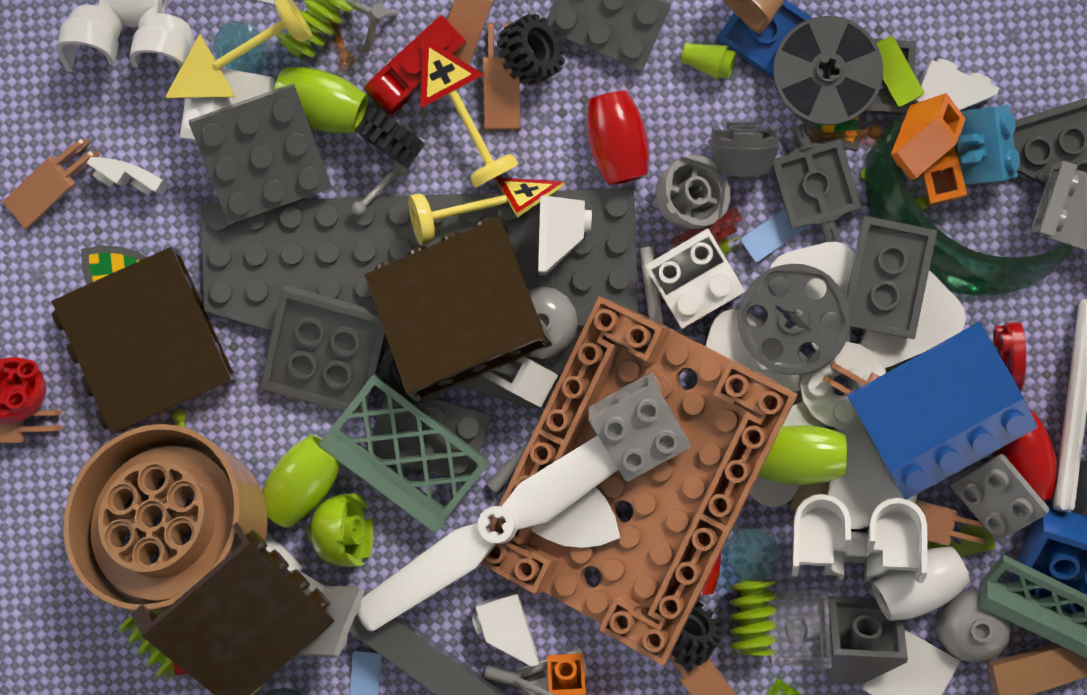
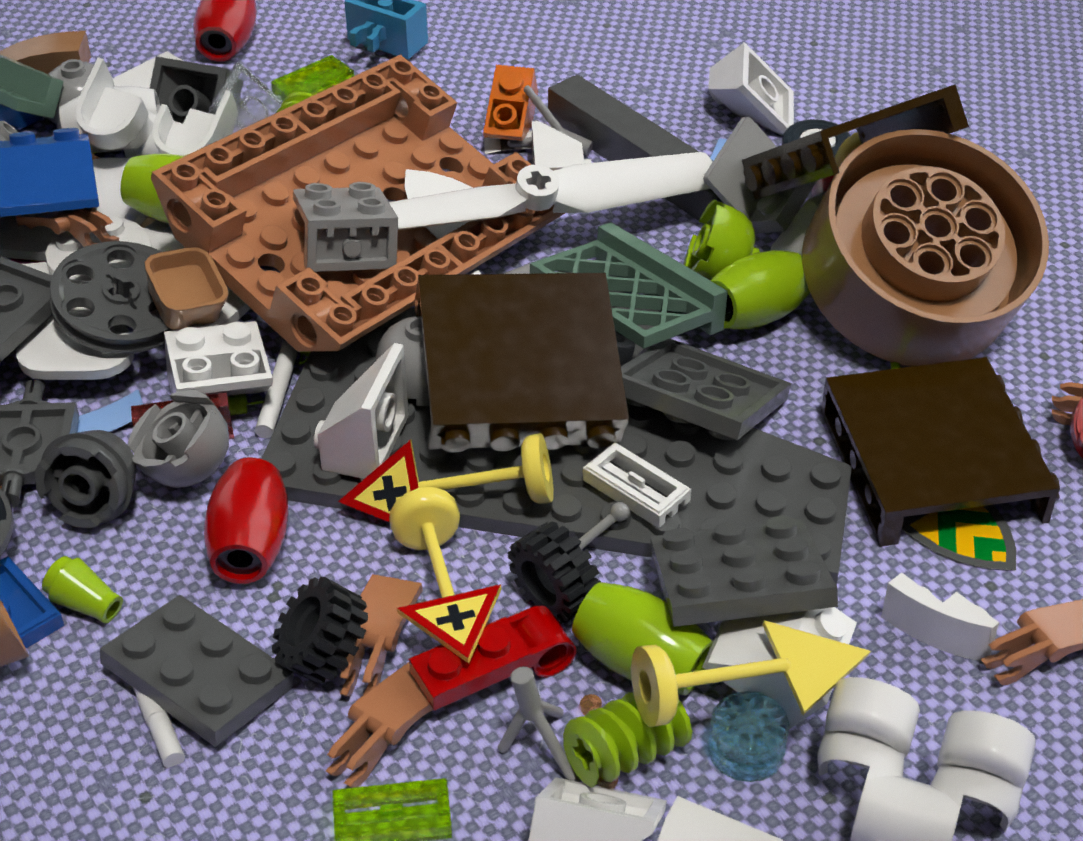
camera: 170 degrees left, 45 degrees down
(324, 224) = (631, 487): none -> white tile
(739, 326) = (186, 287): none -> medium nougat piece

